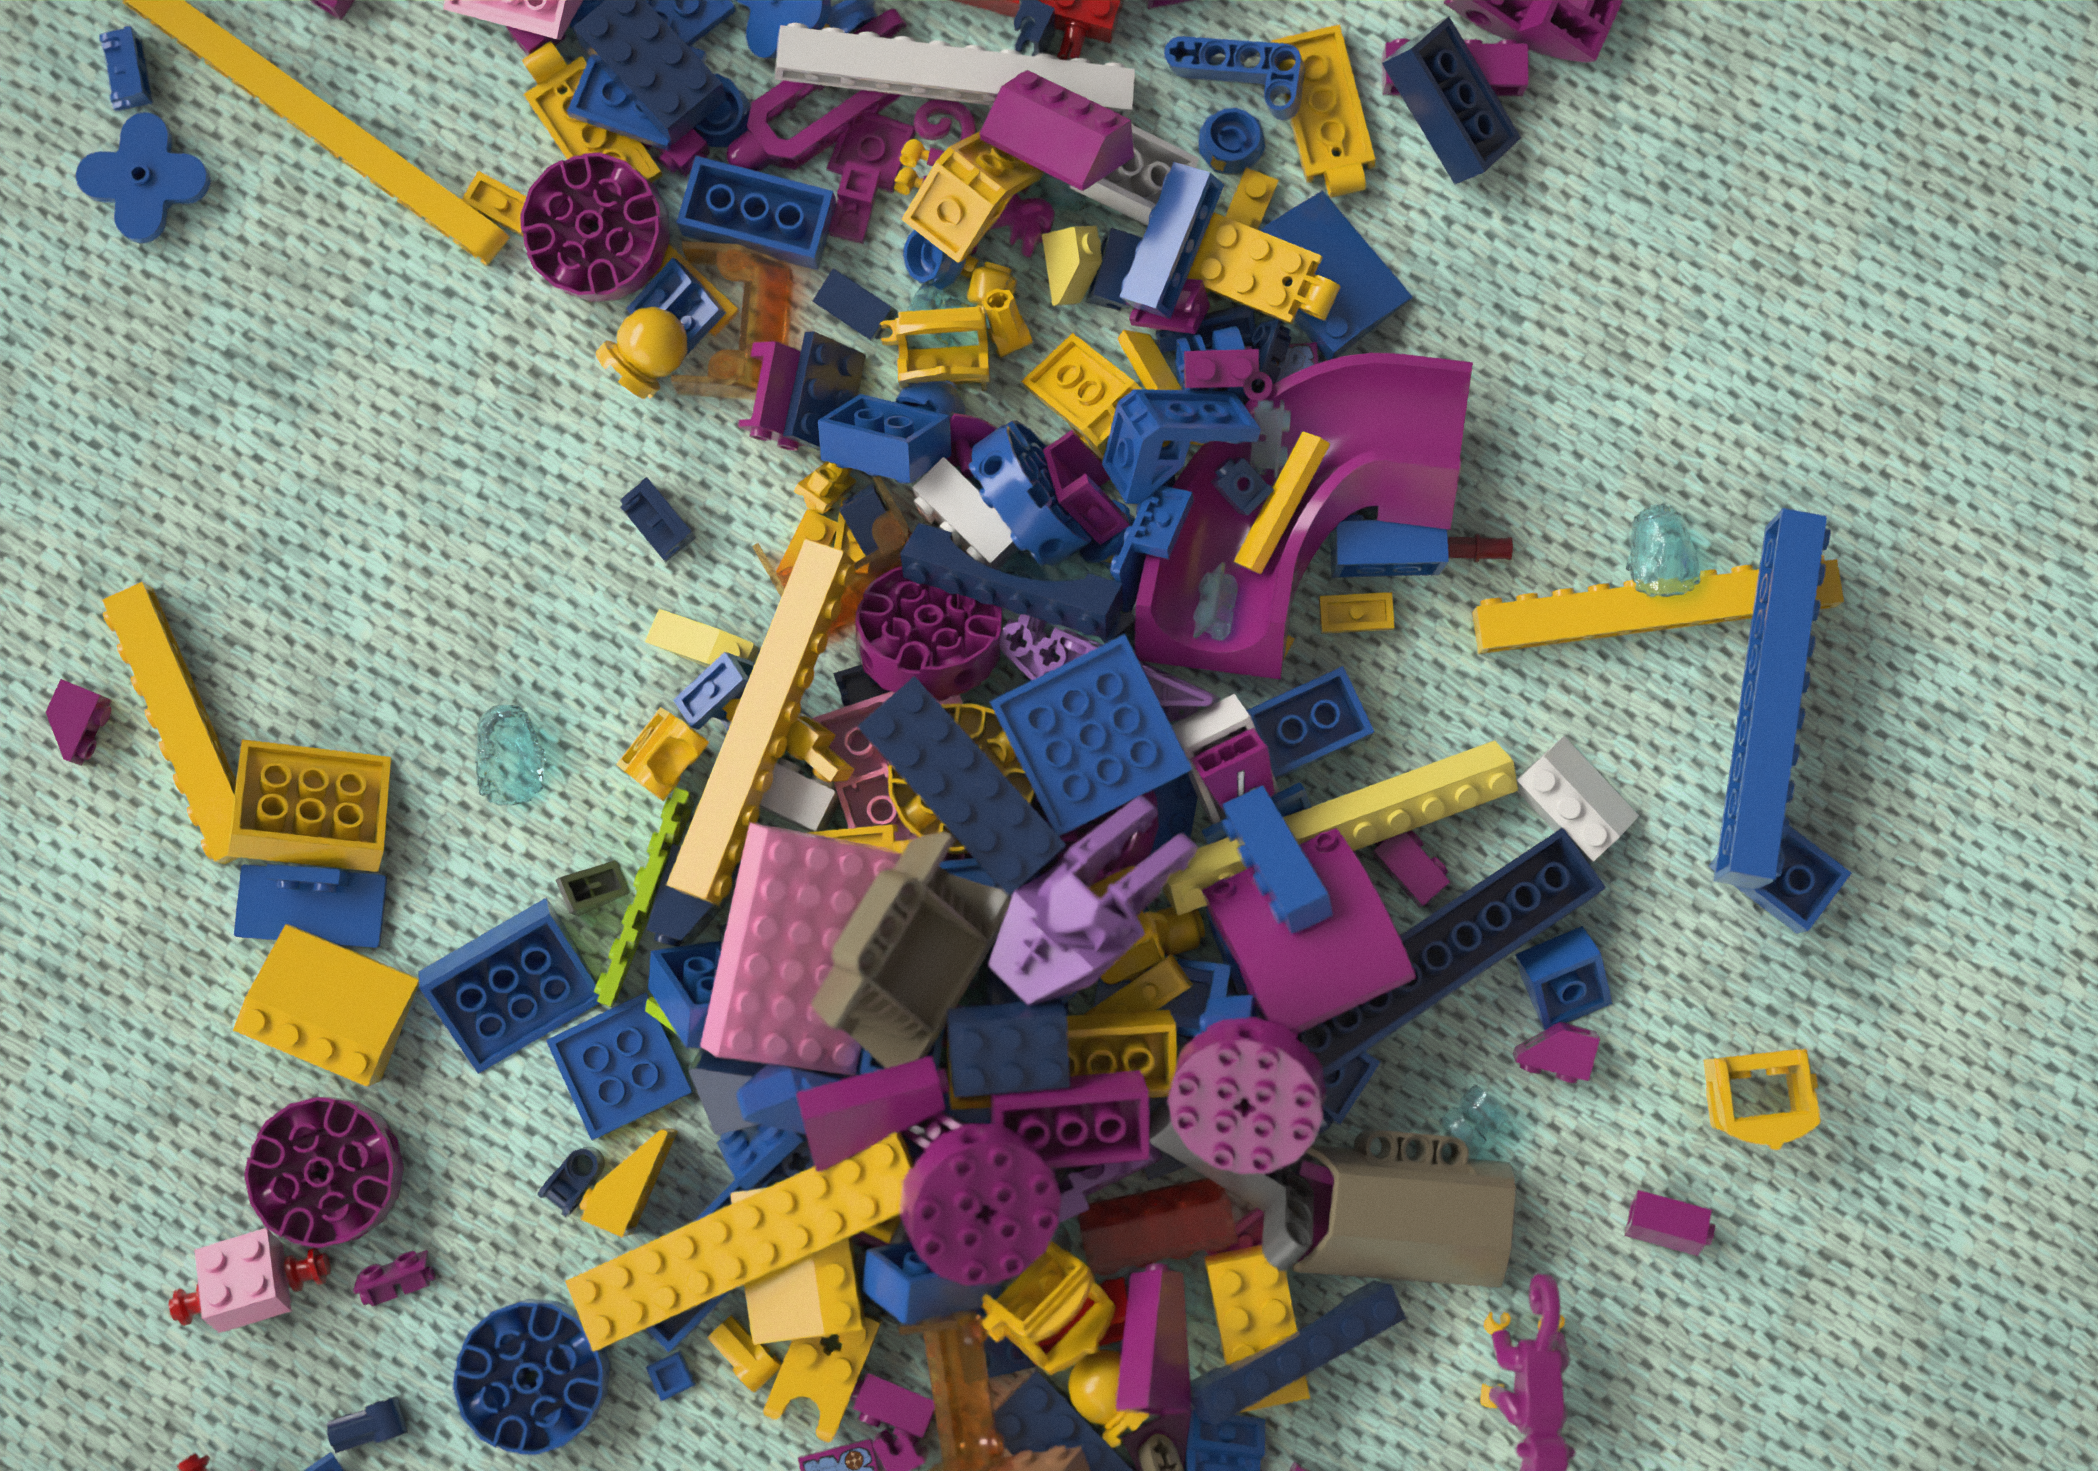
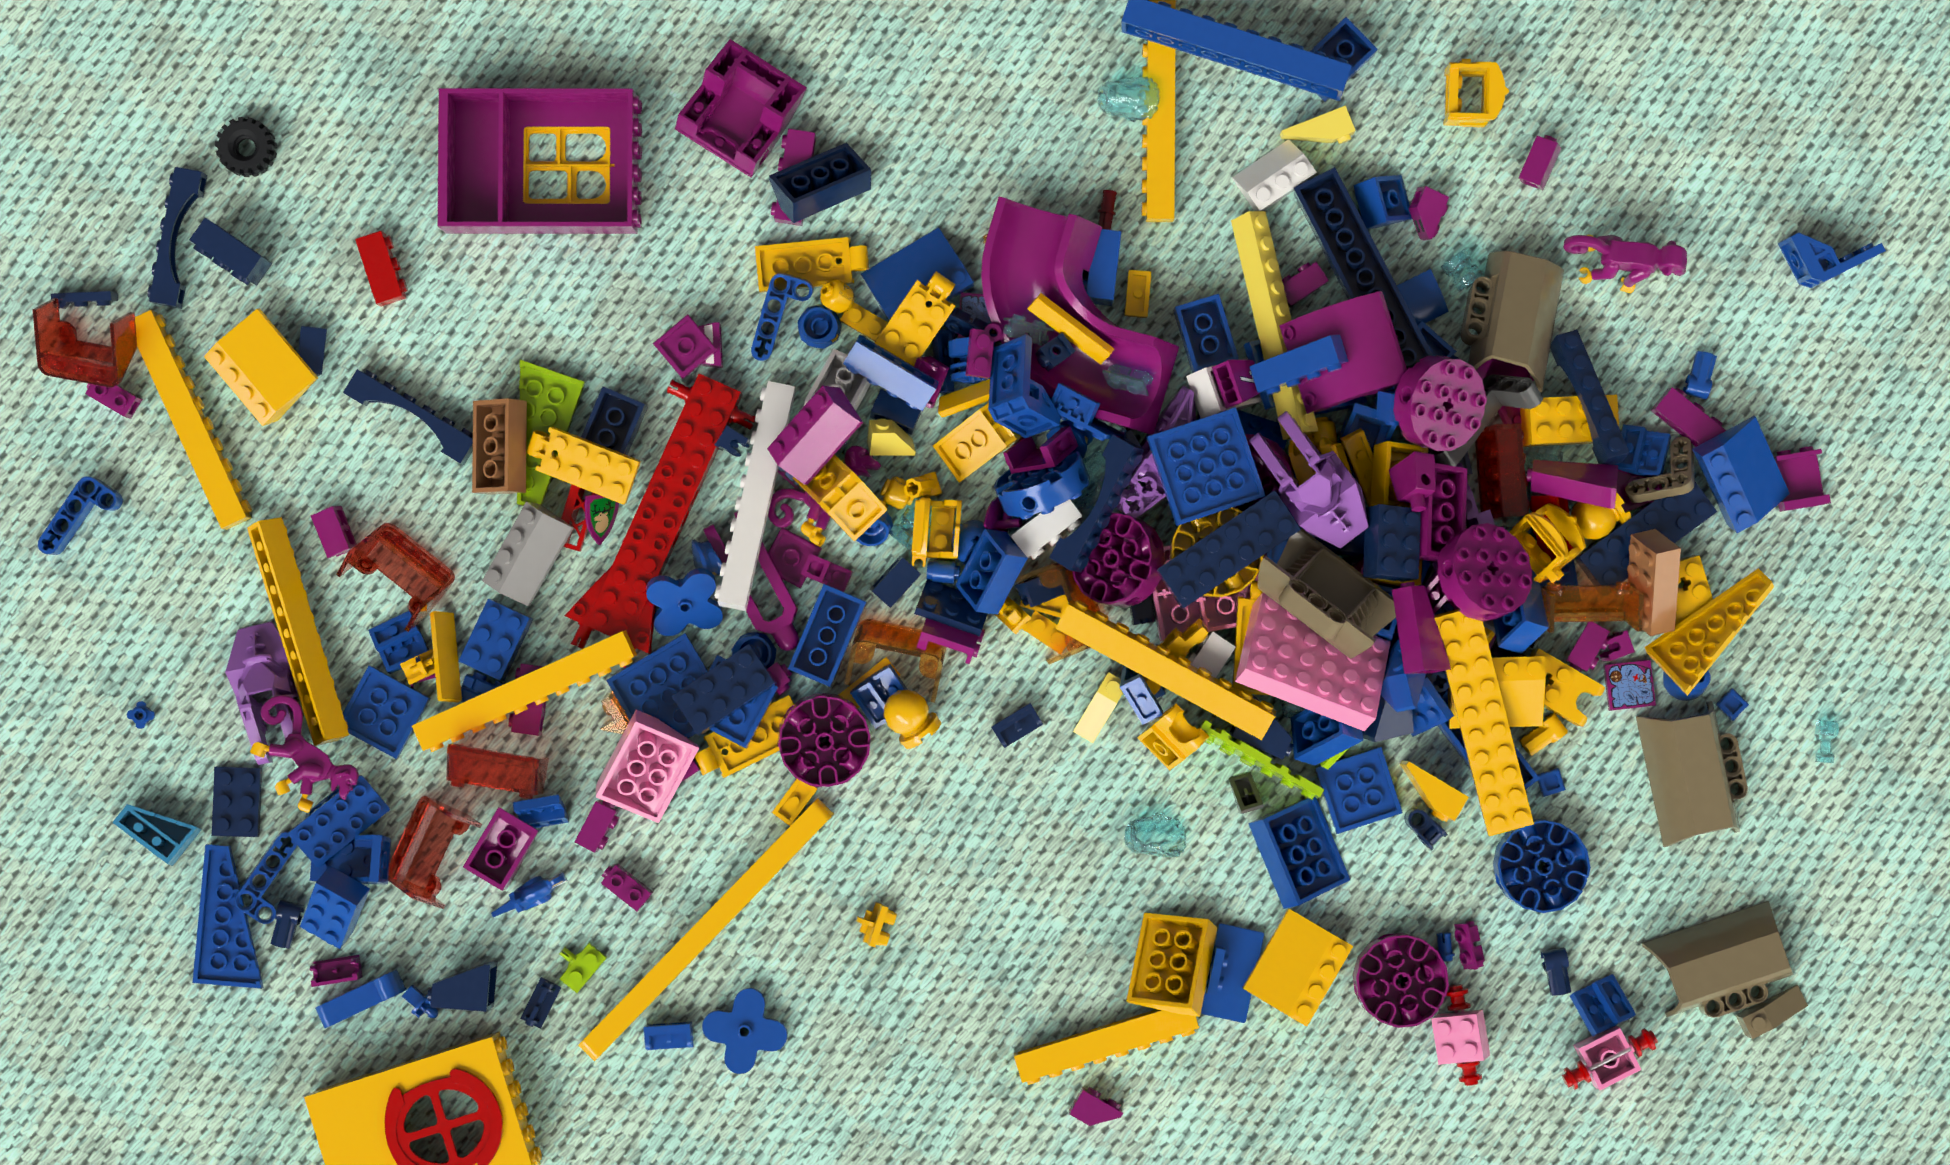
camera: 85 degrees left, 5 degrees up
(309, 350) = (873, 923): none -> yellow hips
(387, 1238) = (1445, 948): none -> blue pin
(880, 373) = (943, 571): none -> blue brick
(1115, 1070) = (1414, 479): none -> magenta torso
(1280, 154) = (837, 296): none -> yellow head
(1417, 1059) = (1423, 297): none -> blue slope
(1666, 870) = (1324, 128): none -> light yellow slope

